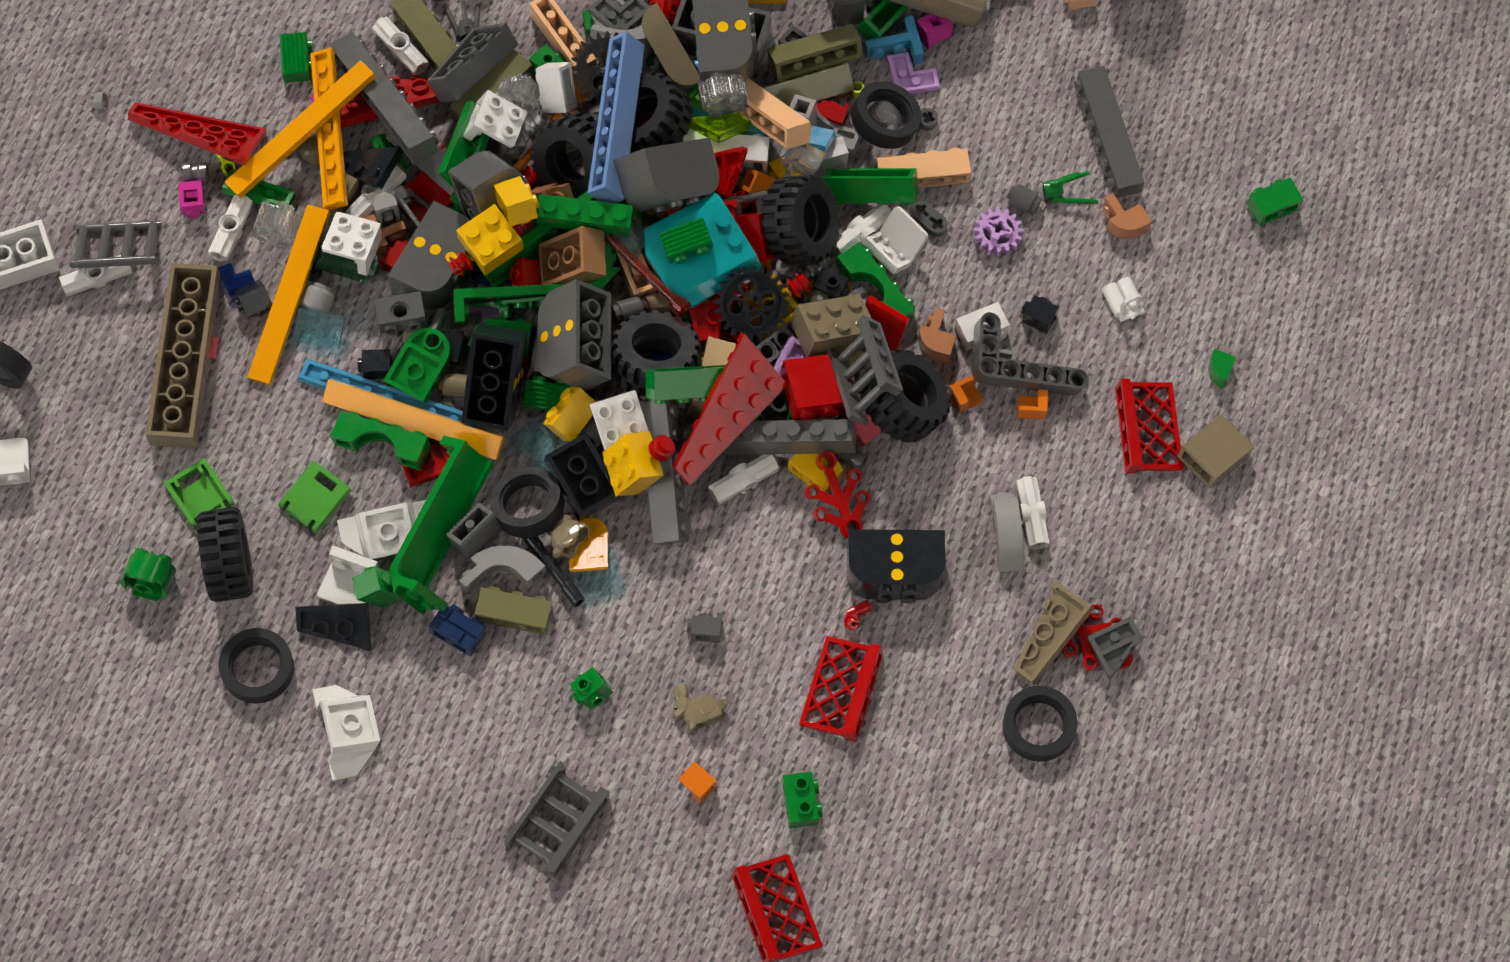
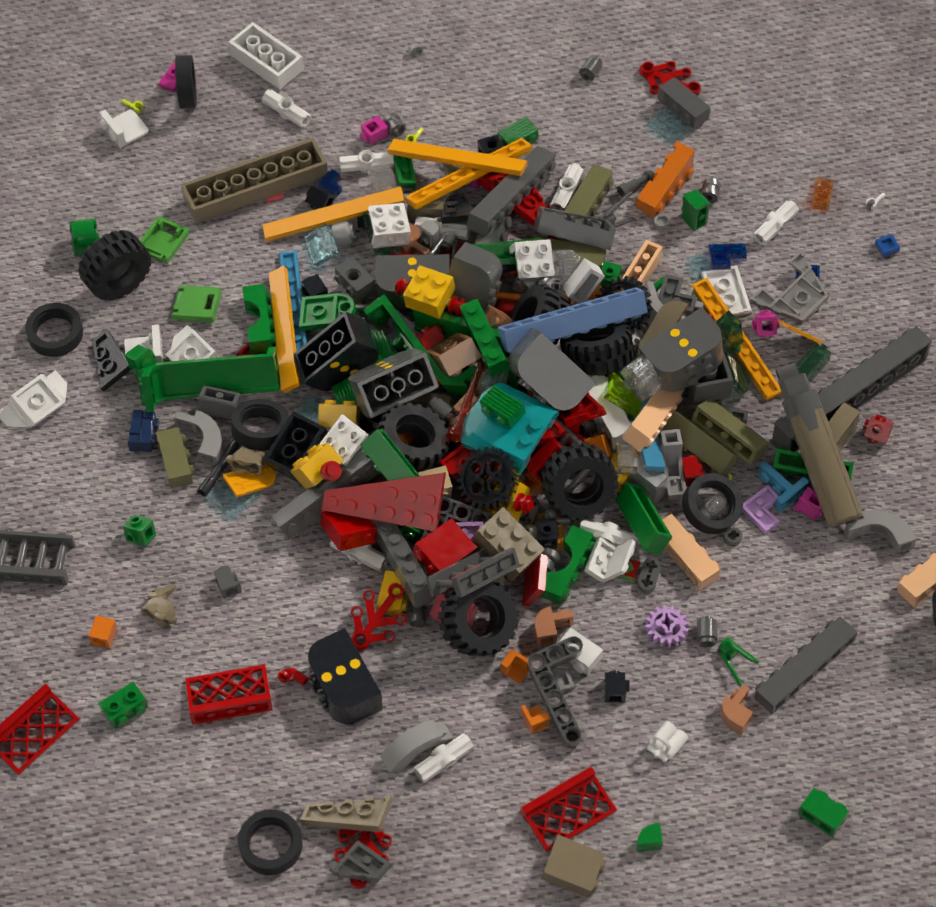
camera: 65 degrees right, 10 degrees down
(105, 230) = (322, 98): dark grey bar -> none
(215, 135) = (425, 114): red wing -> none
(298, 101) = (489, 144): none -> black brick
(516, 201) = (463, 288): yellow brick -> none
(724, 476) = (348, 530): none -> red brick

